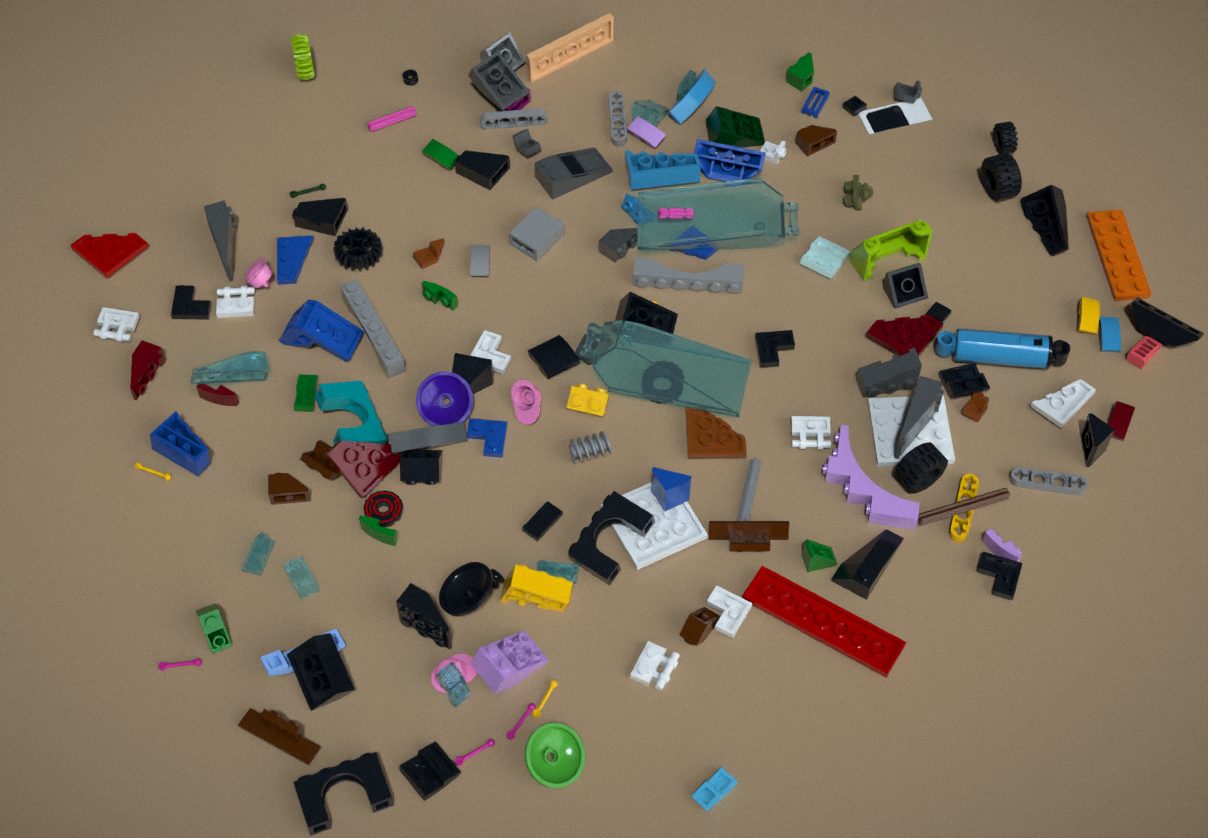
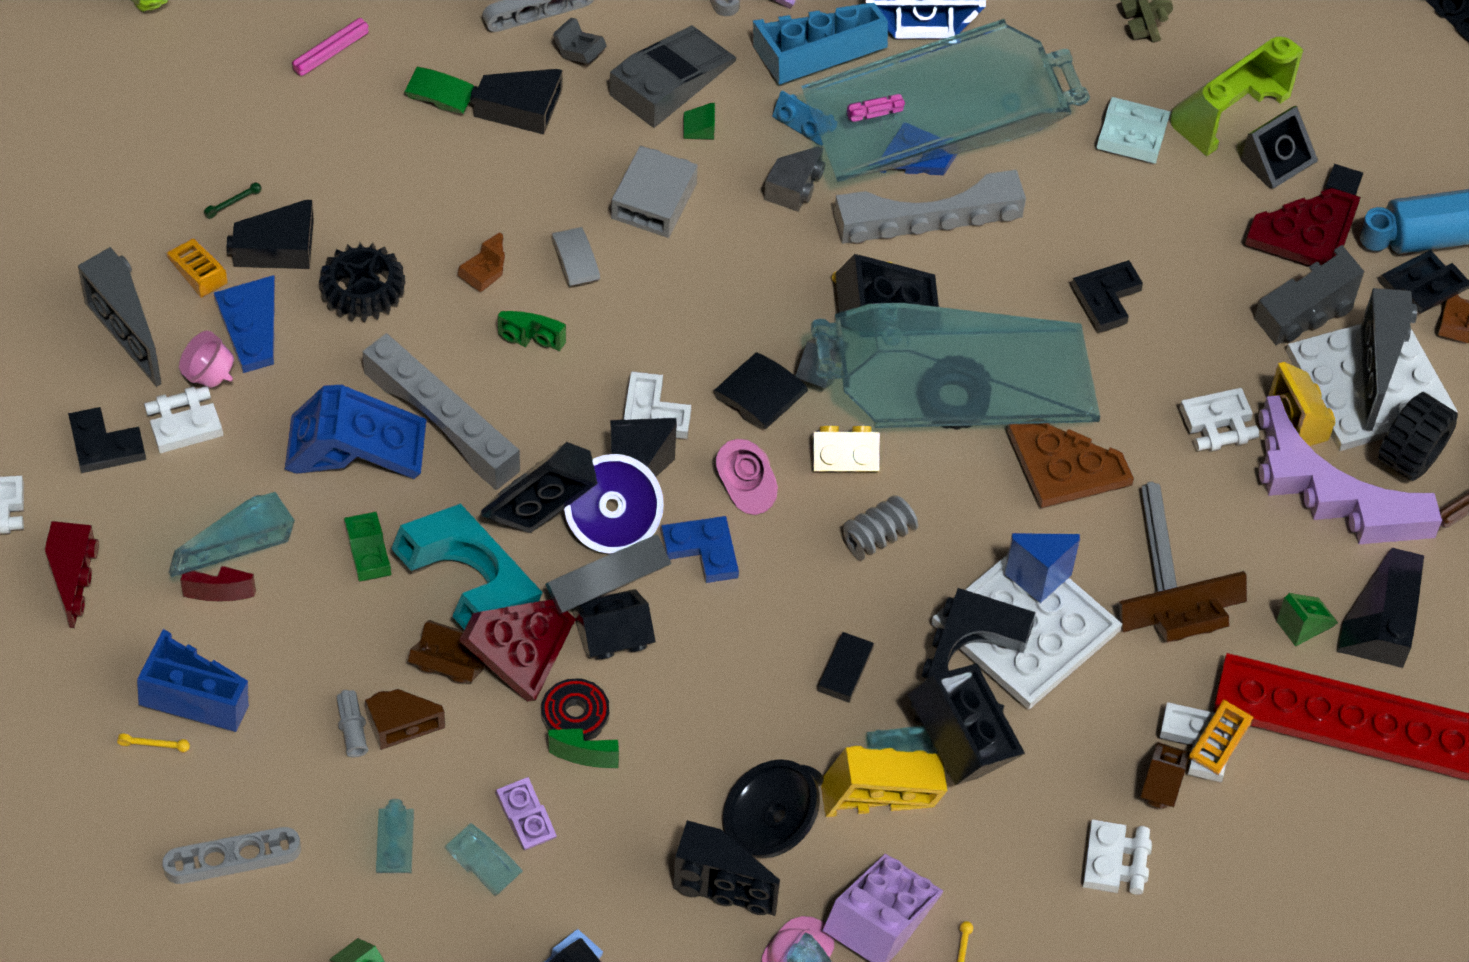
camera: 20 degrees left, 0 degrees up
(168, 545) = (231, 849): none -> light grey beam
(259, 486) = (352, 723): none -> light grey axle
(277, 231) = (207, 283): none -> light orange slope
(333, 558) = (525, 814): none -> lavender slope
(405, 382) = (544, 489): none -> black slope
(578, 201) = (700, 122): none -> green slope
(591, 568) = (965, 723): none -> black slope
(745, 597) = (1235, 716): none -> light orange slope
(861, 434) = (1303, 403): none -> yellow slope

